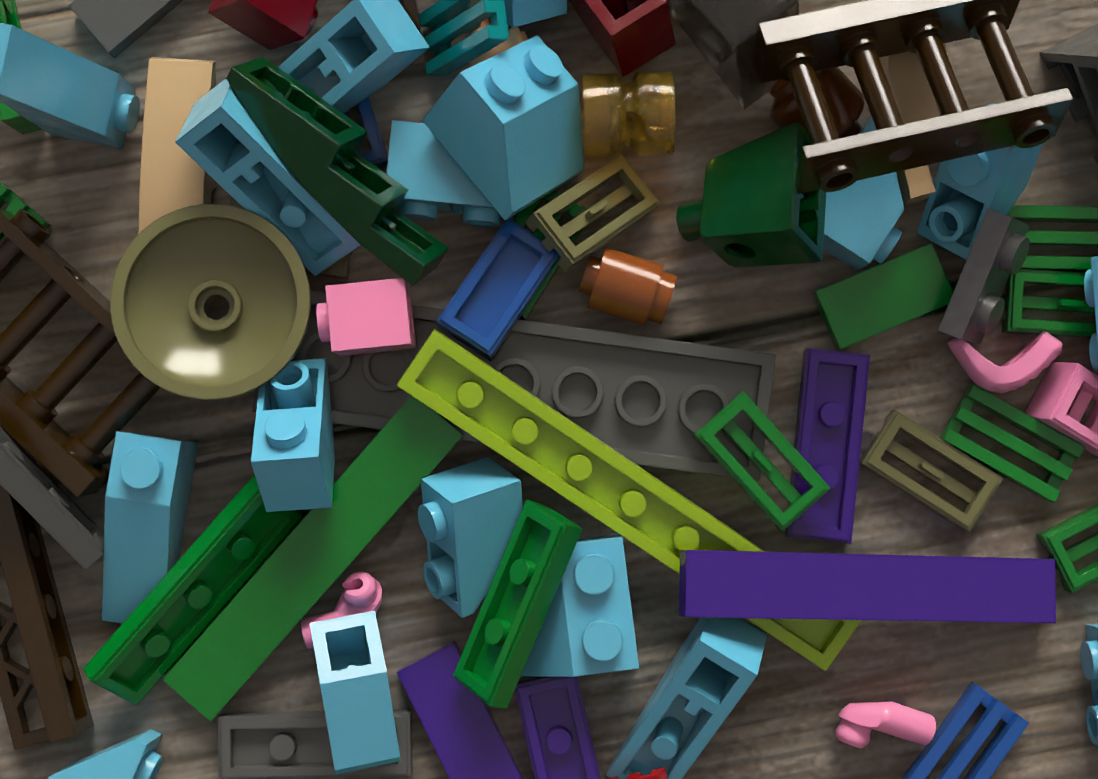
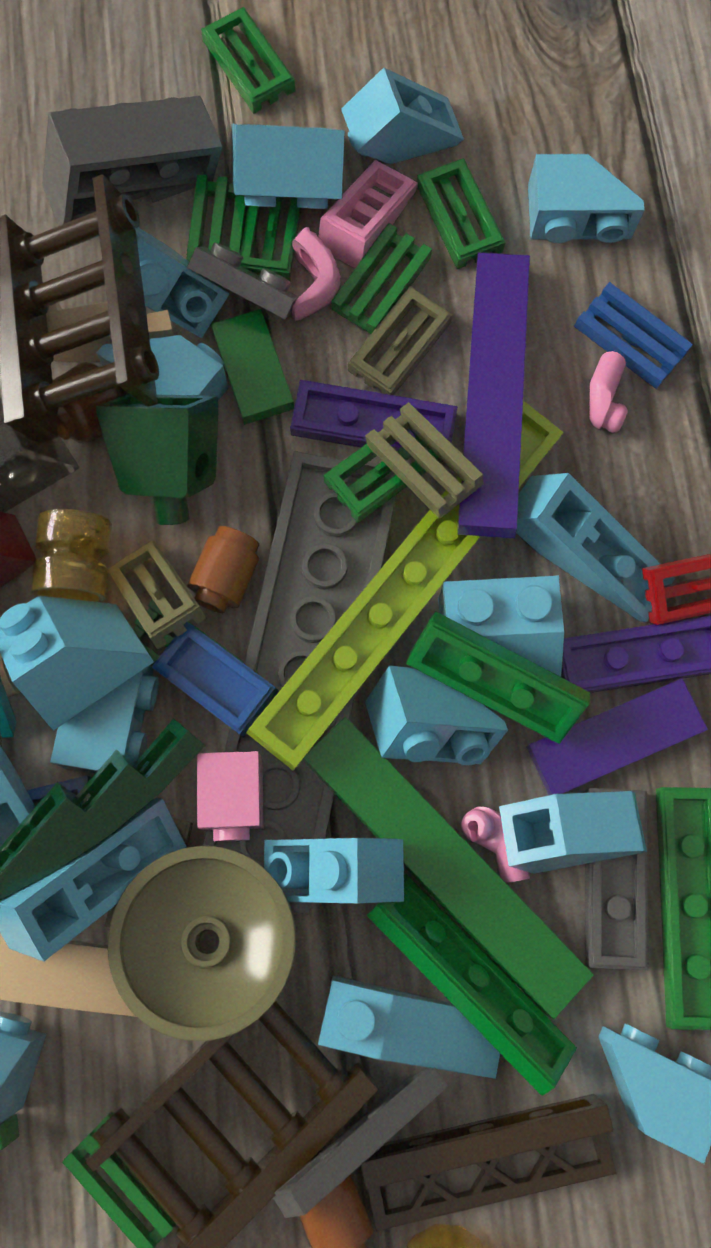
camera: 90 degrees left, 10 degrees down
(800, 469) = (450, 455): none -> olive tile

